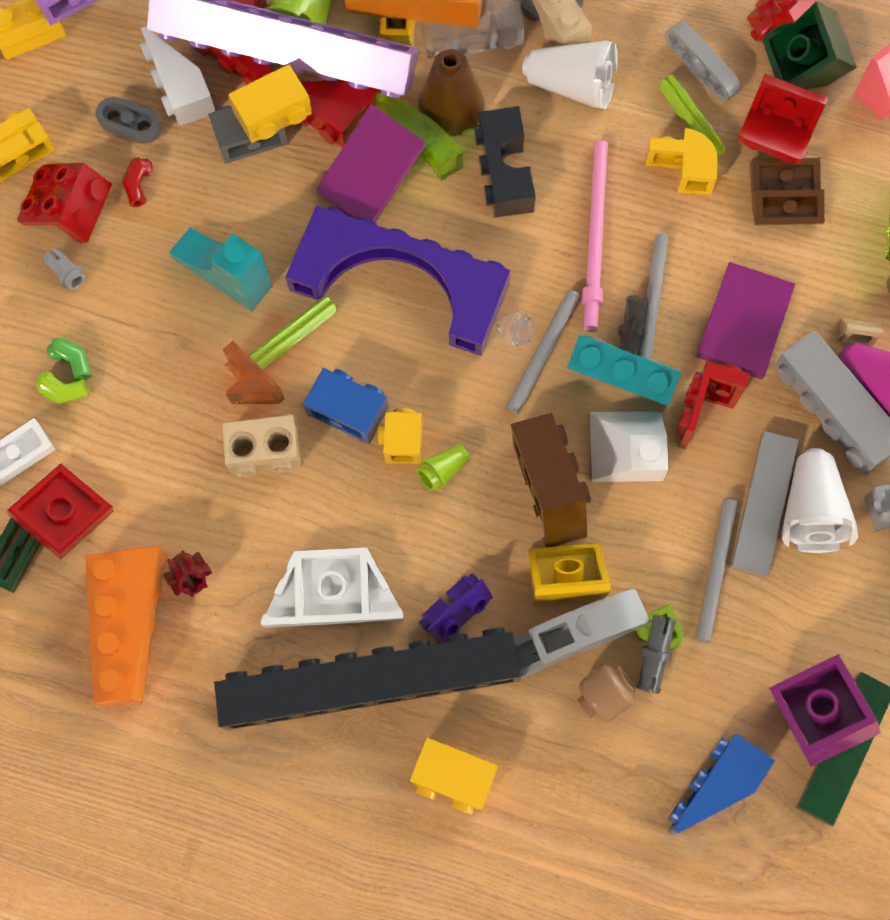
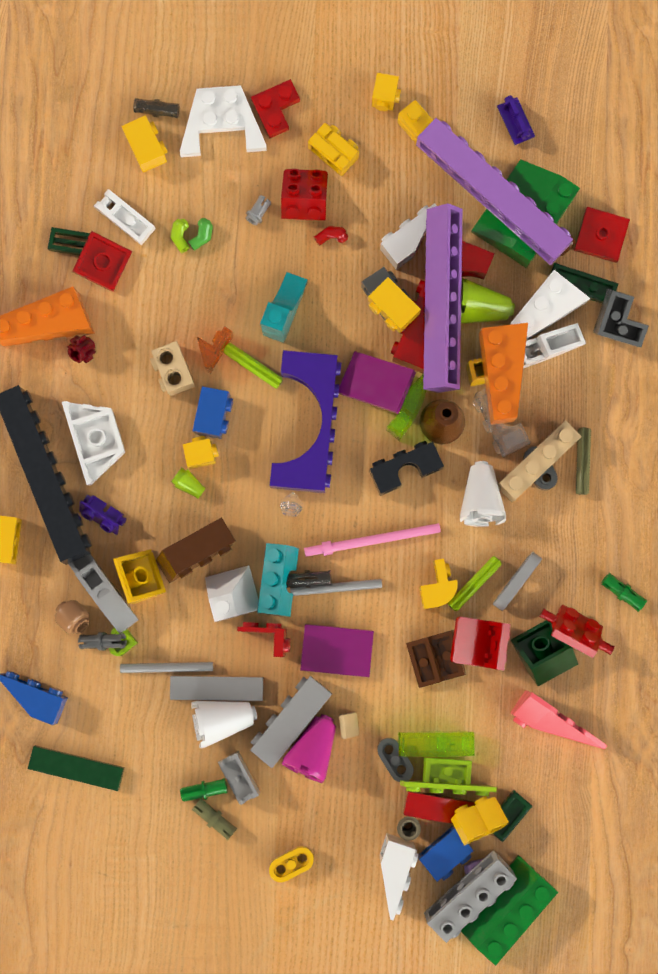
camera: 75 degrees right, 10 degrees up
(131, 120) = (371, 217): dark grey plate -> none
(543, 352) = (282, 526): light grey bar -> none
(825, 710) = (88, 748): magenta brick -> none

